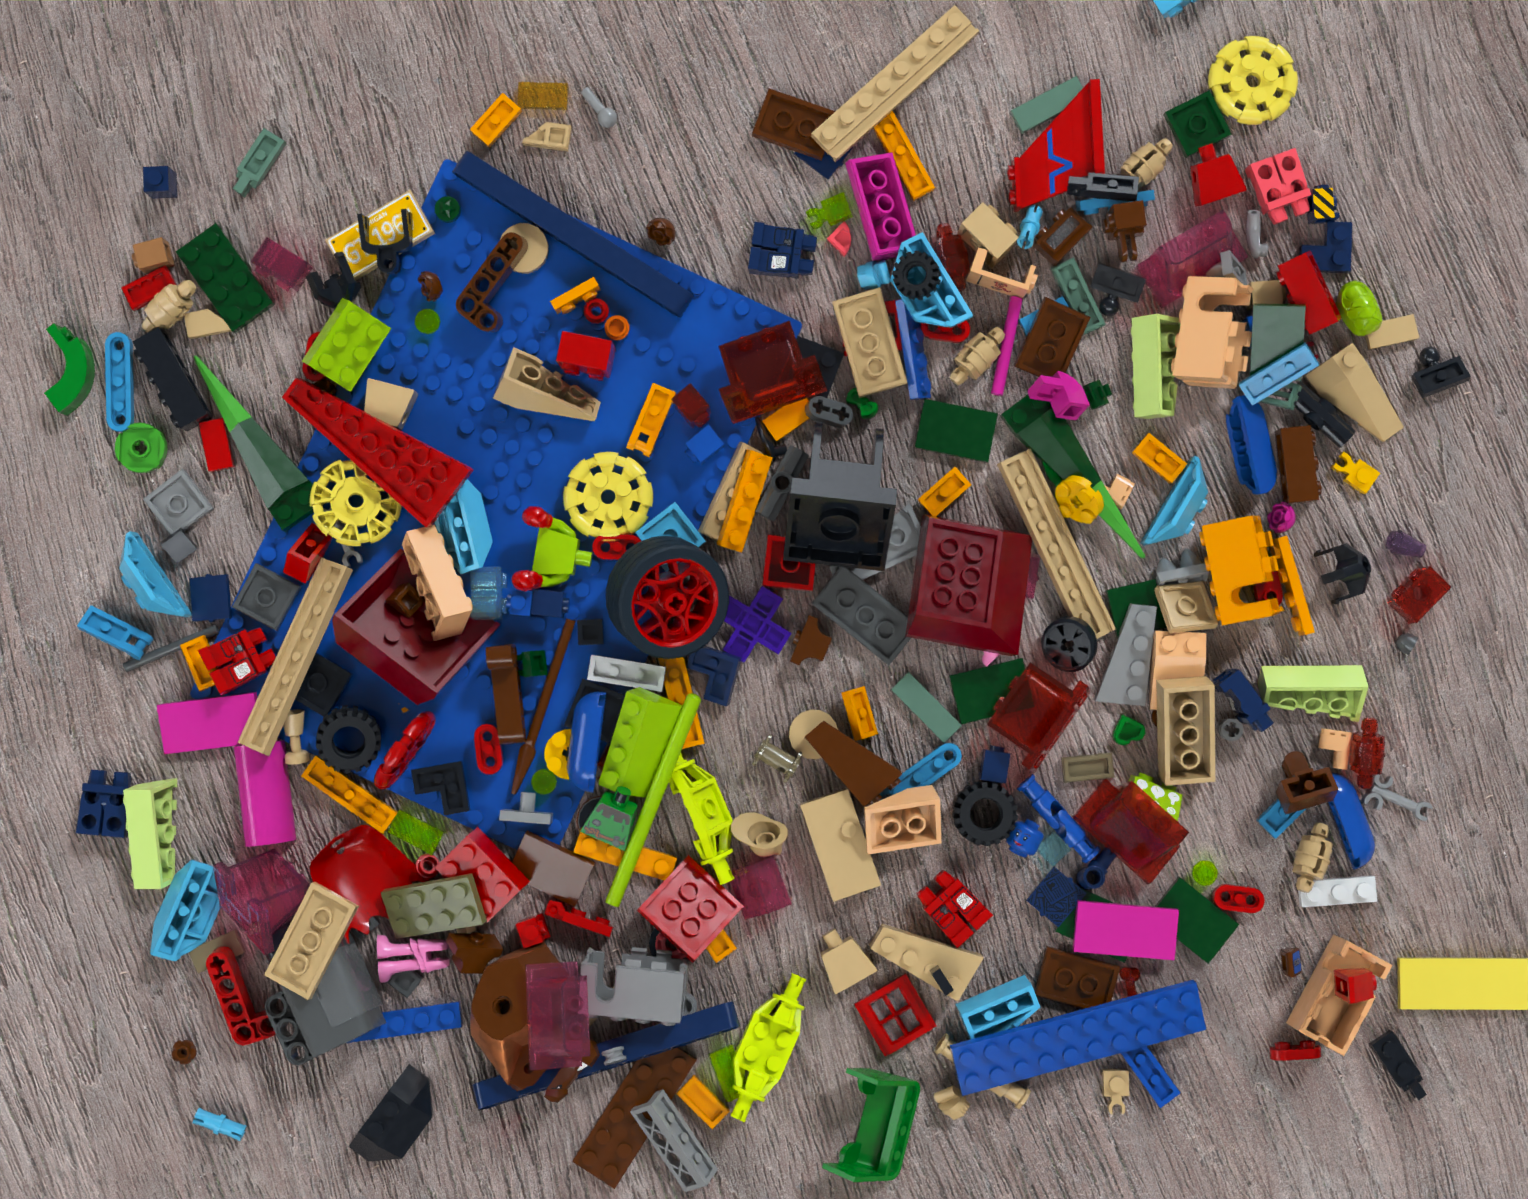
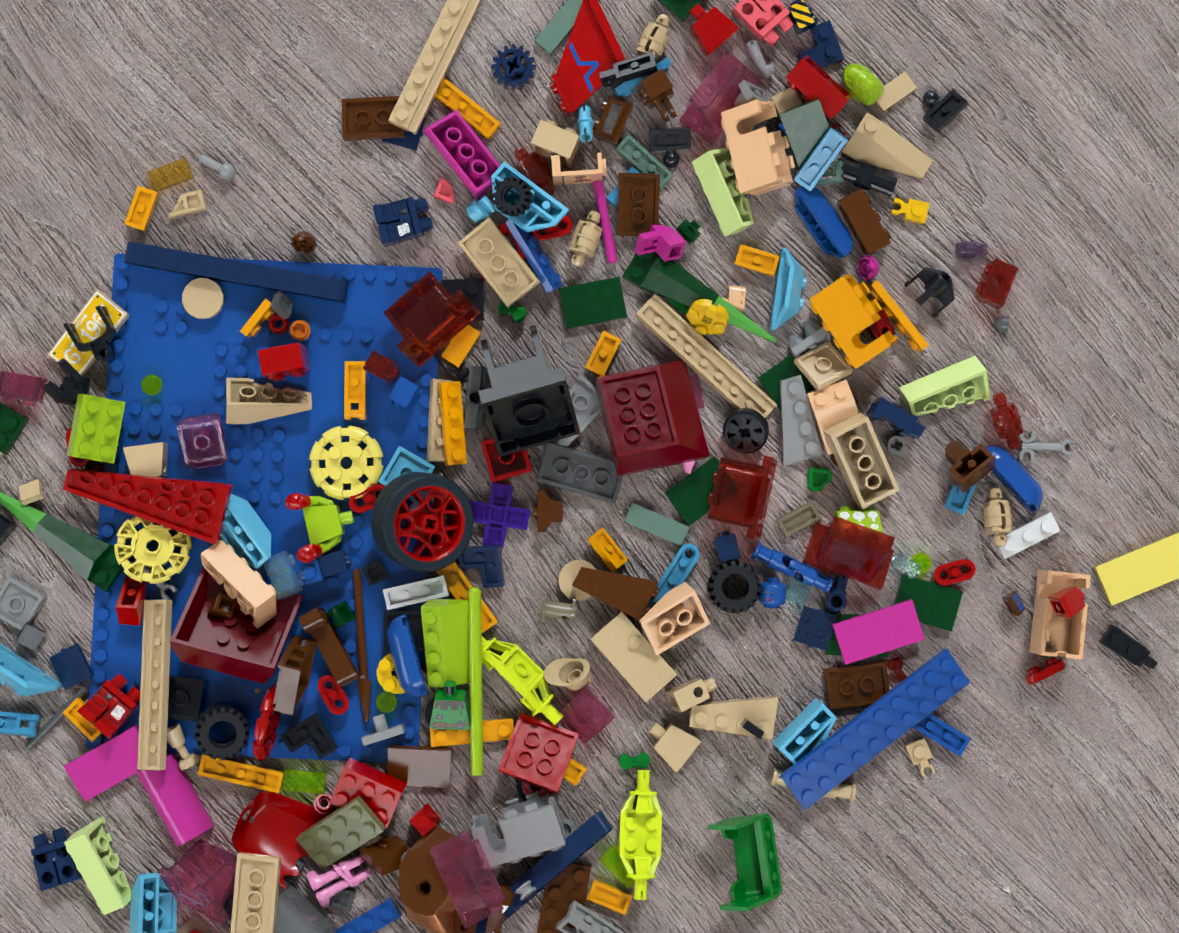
camera: 25 degrees left, 0 degrees up
(216, 445) = (28, 546): red tile -> none
(244, 385) = (31, 492): none -> tan tile
(266, 596) = (114, 647): dark grey tile -> none
(431, 285) = (143, 356): reddish brown plate -> none
(447, 209) = (132, 292): dark green tile -> none
(455, 708) = (294, 678): none -> reddish brown window
(459, 407) = (203, 440): none -> clear pink slope
(495, 279) = (191, 332): reddish brown beam -> none
(577, 917) = (455, 795): red hinge -> none
(608, 291) = (282, 304): none -> dark grey tile
(784, 959) = (627, 762): none -> green piece
(830, 407) = (491, 332): dark grey beam -> none
(834, 211) = (430, 172): clear neon green plate -> none
(876, 912) = (683, 698): none -> tan torso
(895, 1014) = (729, 769): red piece -> none
(947, 902) = (733, 669): red hips -> none
(952, 1102) = (799, 818): tan piece -> none
(981, 138) = (520, 71): none -> dark blue gear
(1186, 868) = (905, 565): none -> clear light blue piece
(1340, 743) = (982, 421): light nougat piece -> none

